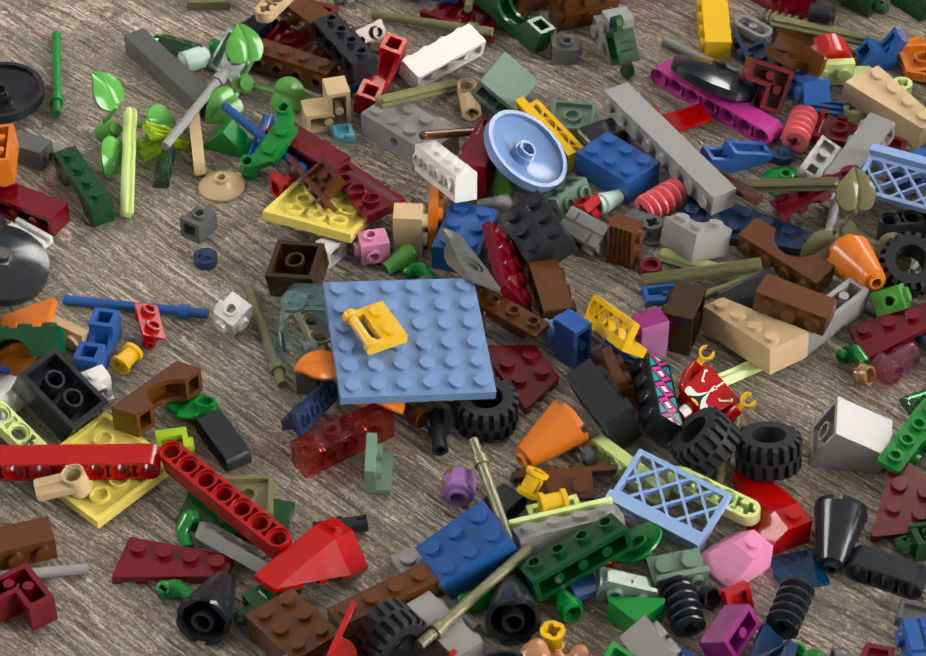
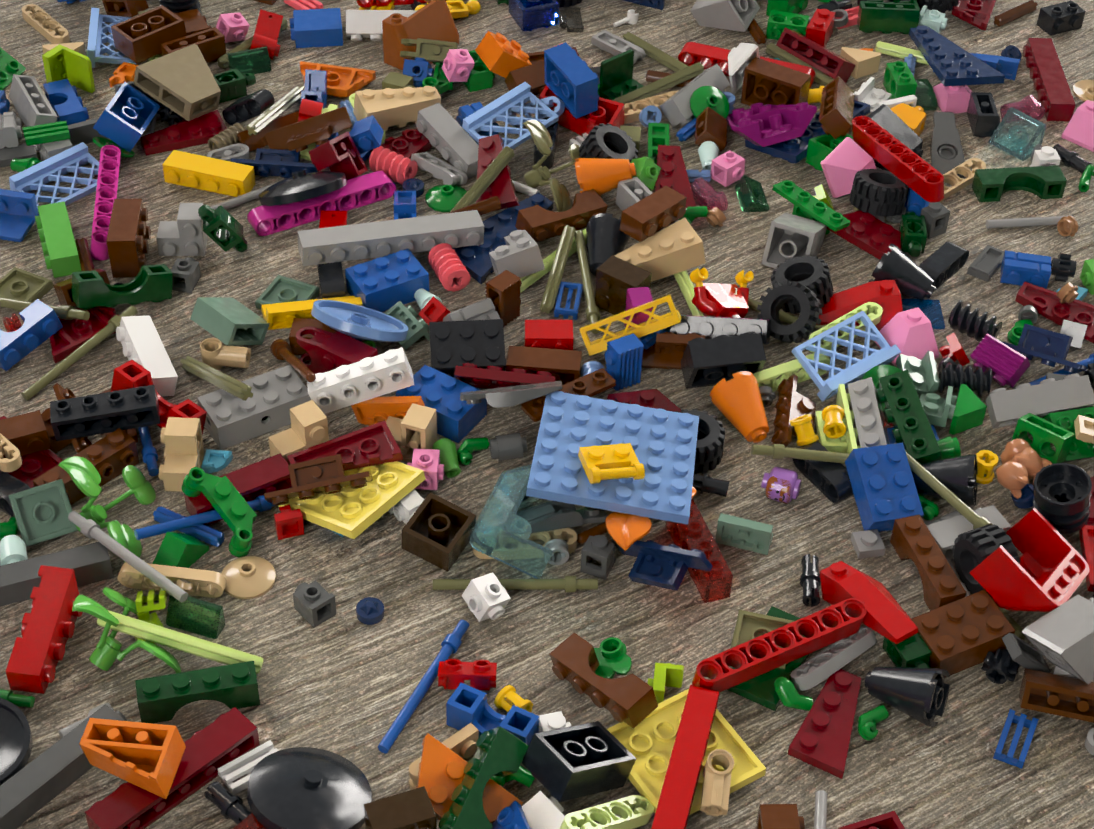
camera: 75 degrees left, 0 degrees up
(140, 90) = (44, 631): none -> red wedge
(222, 440) = (669, 644): black beam -> none
(381, 161) = (307, 430): none -> tan brick
(591, 280) = (549, 334): none -> red brick
(649, 265) = (529, 301): dark red tile -> none
(651, 230) = (473, 288): dark grey piece -> none

